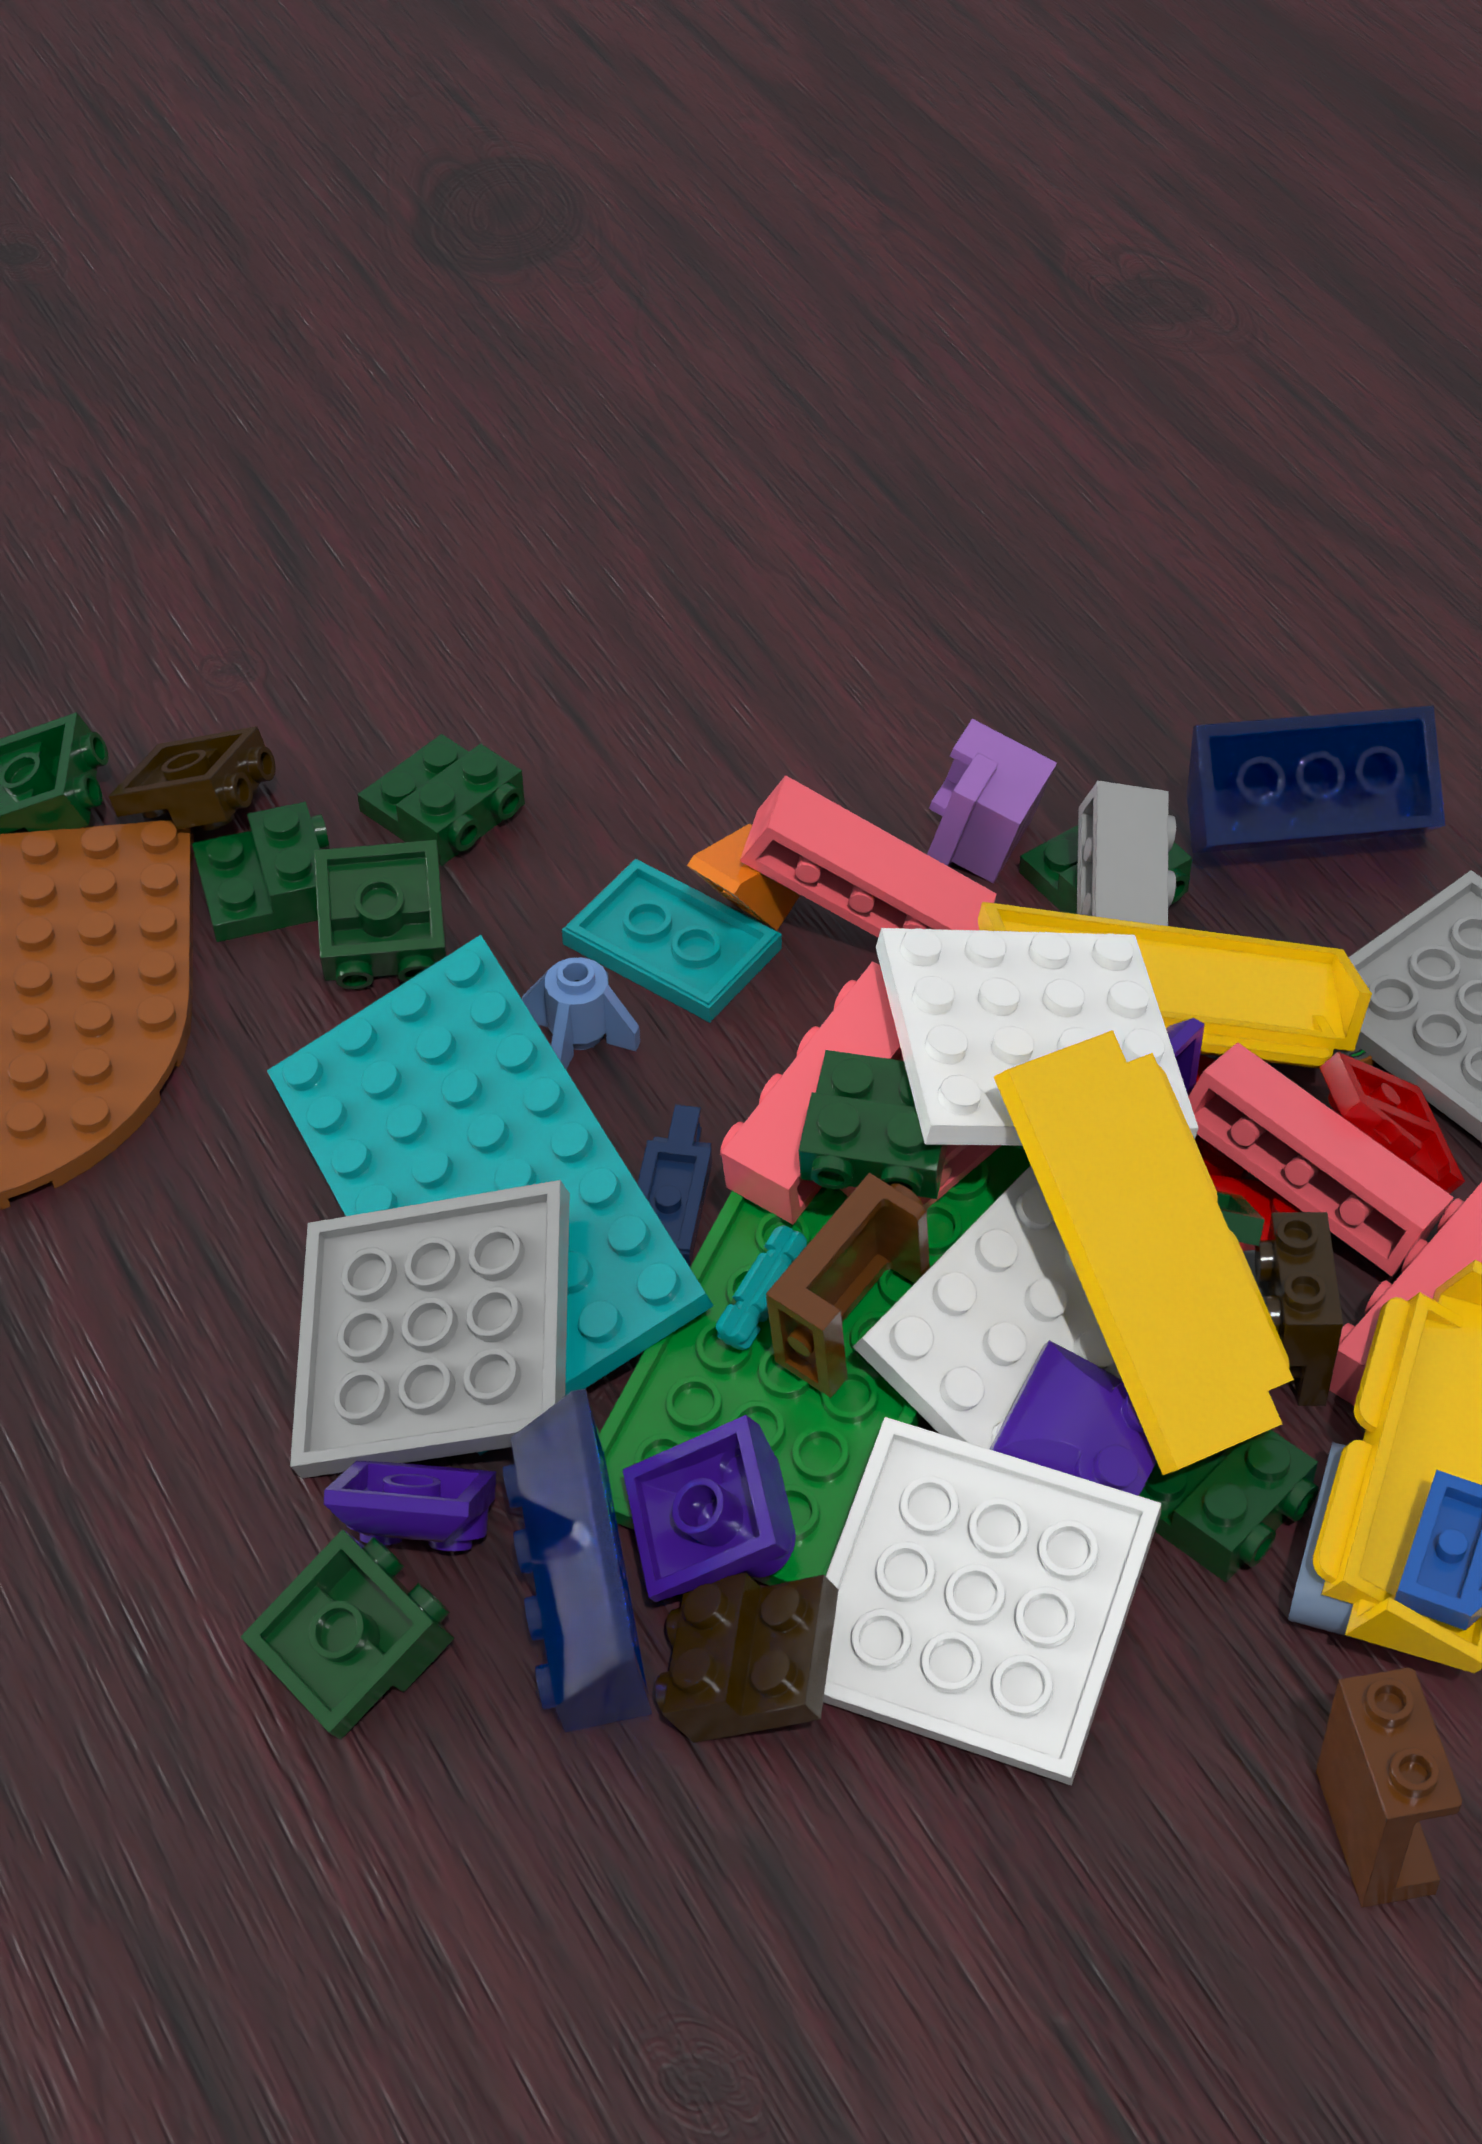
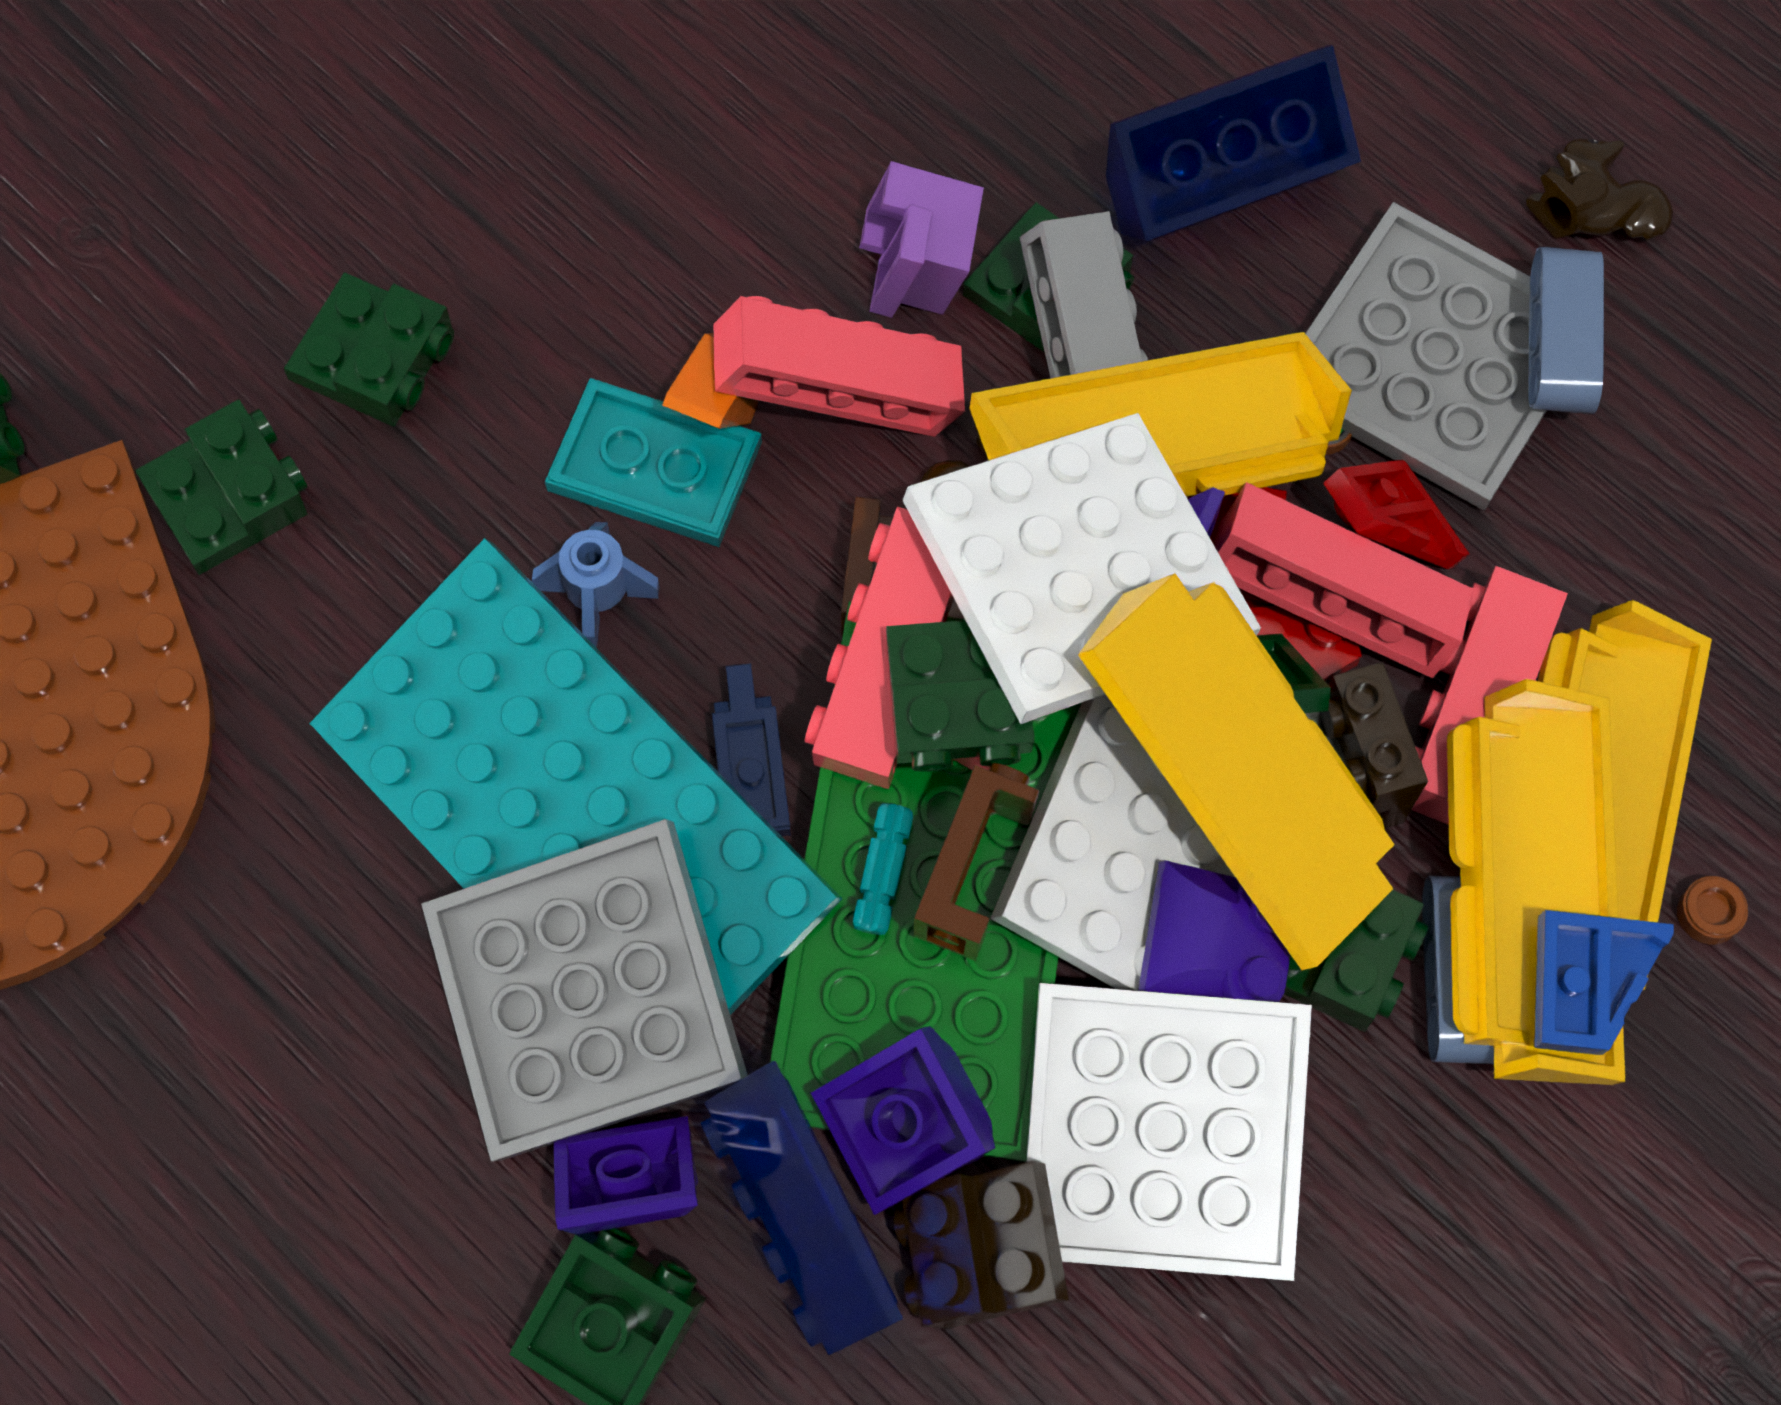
camera: 20 degrees left, 20 degrees up
(197, 779) = (113, 395): dark brown plate -> none
(379, 911) = (363, 516): dark green plate -> none
(1383, 1777) = (1574, 1228): reddish brown panel -> none

